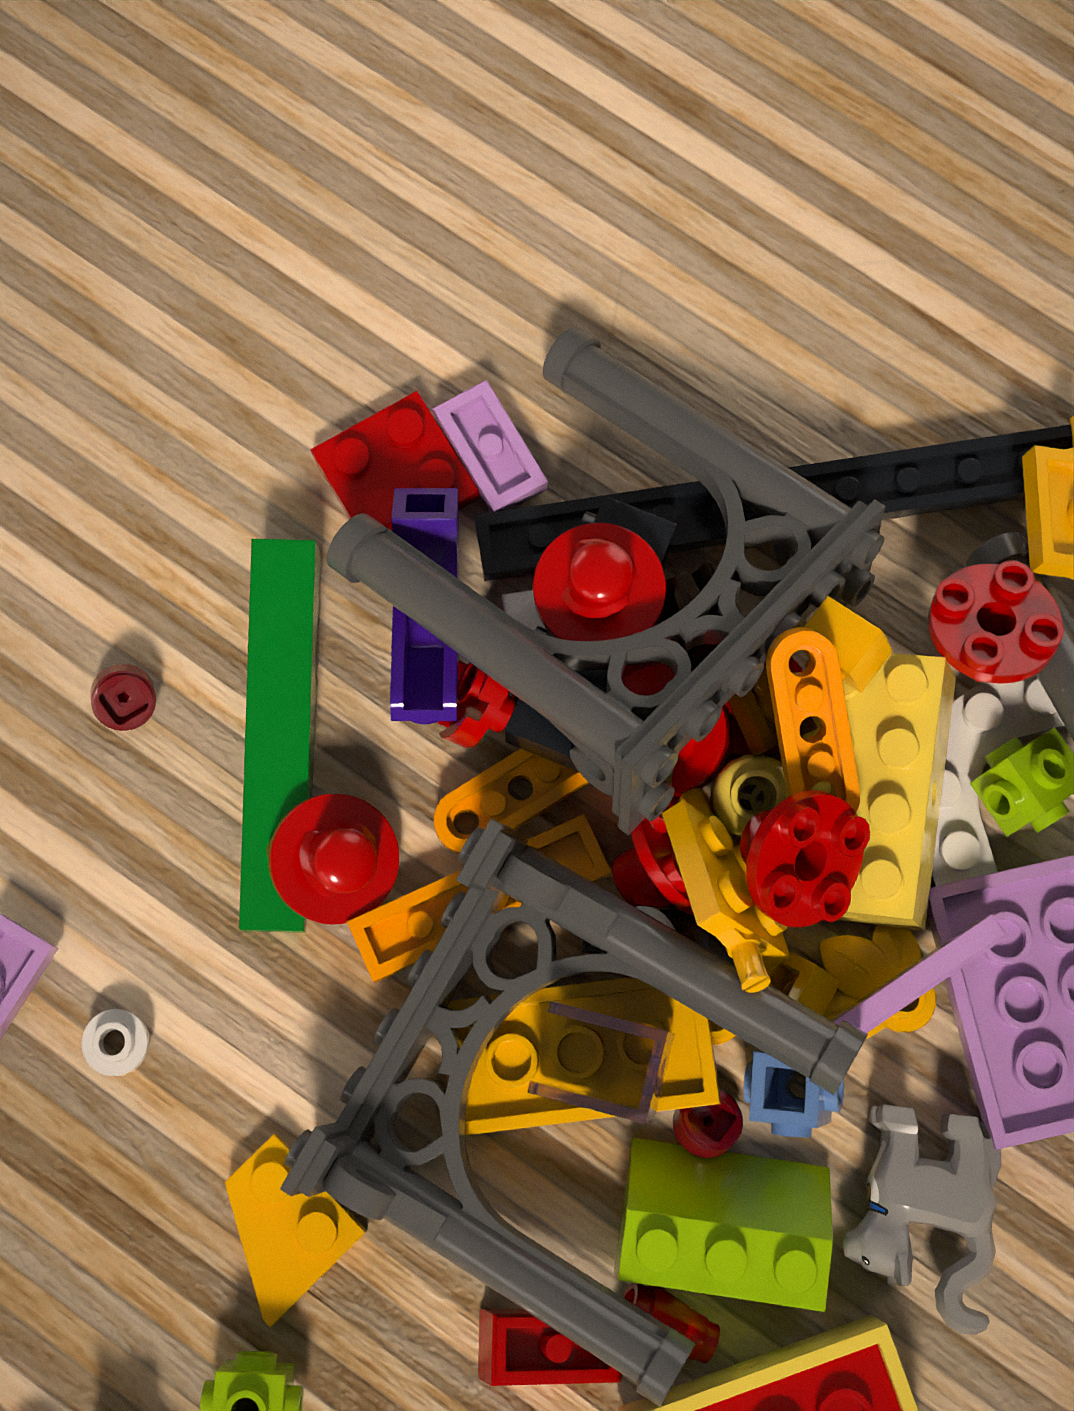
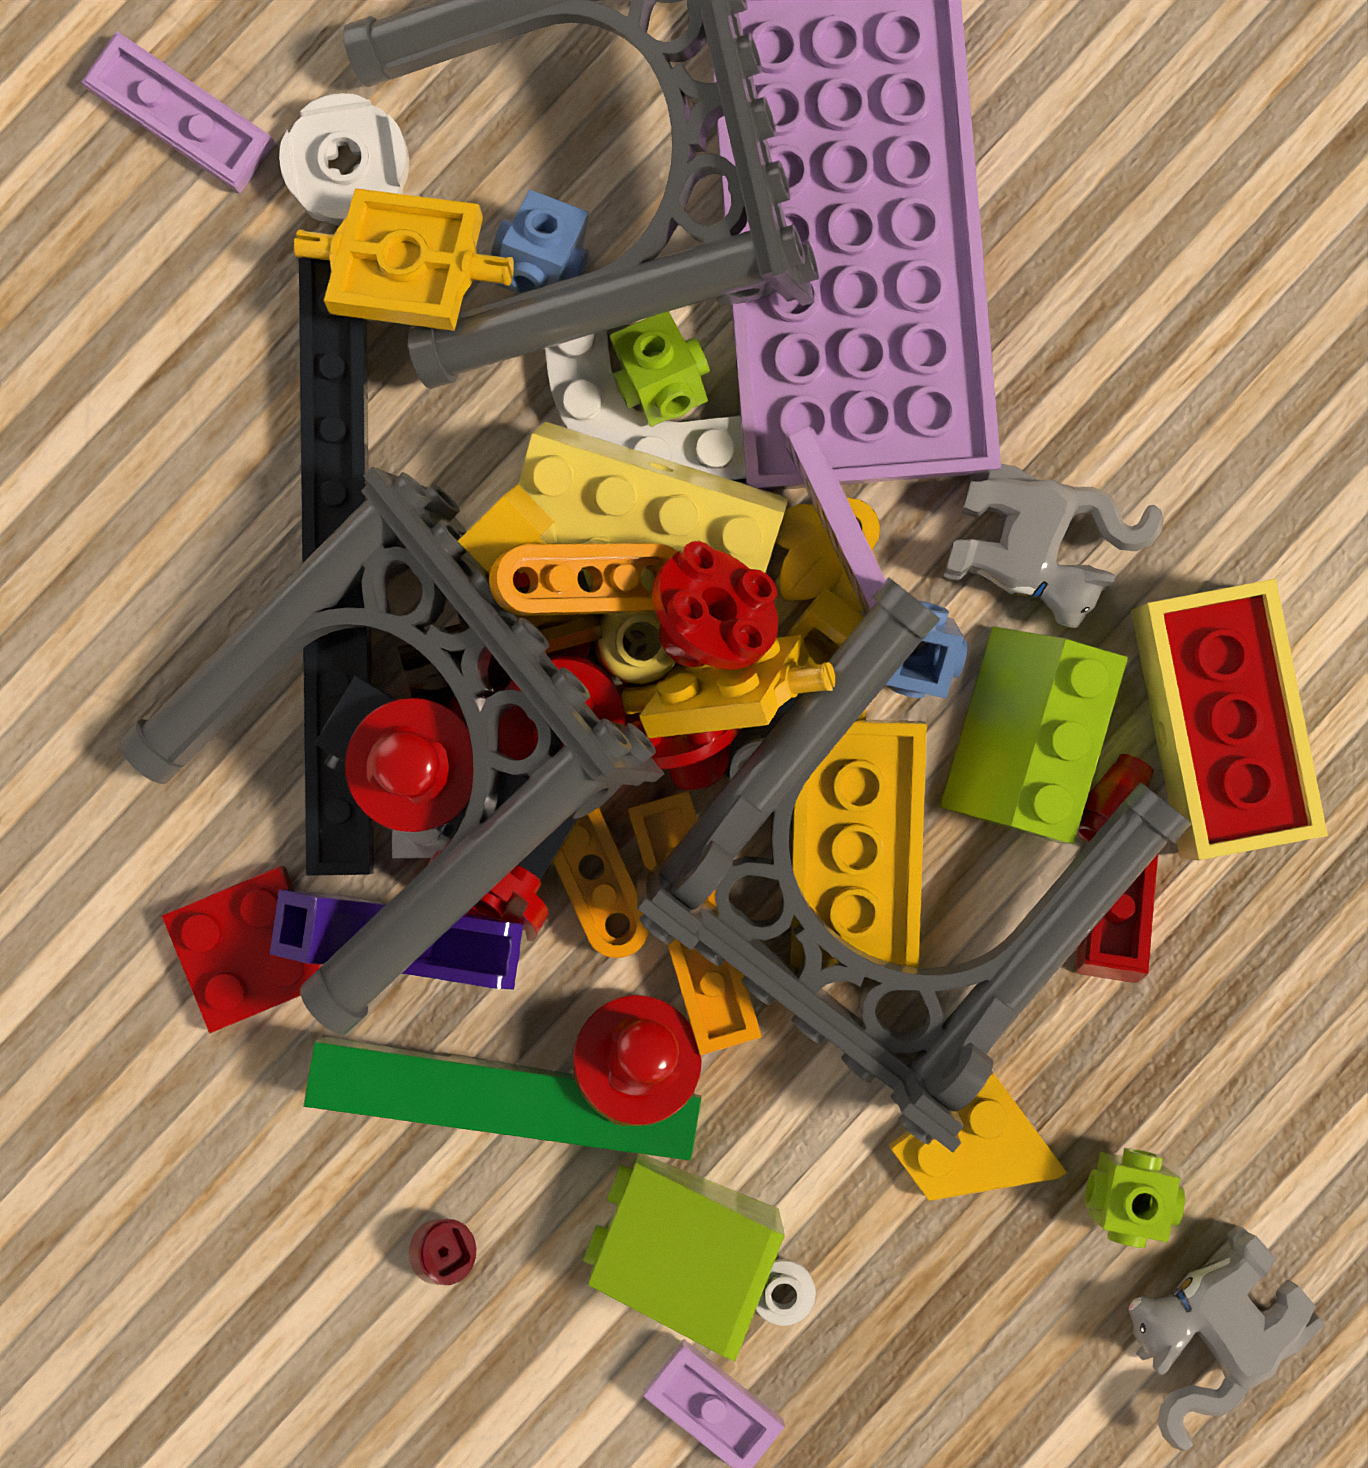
camera: 80 degrees left, 10 degrees up
(147, 931) = (685, 1252): none -> lime slope
(490, 448) = (235, 848): lavender plate -> none
(654, 1079) = (912, 840): piece -> none
(710, 1128) = (946, 733): dark red tile -> none
(995, 622) = (502, 376): red plate -> none

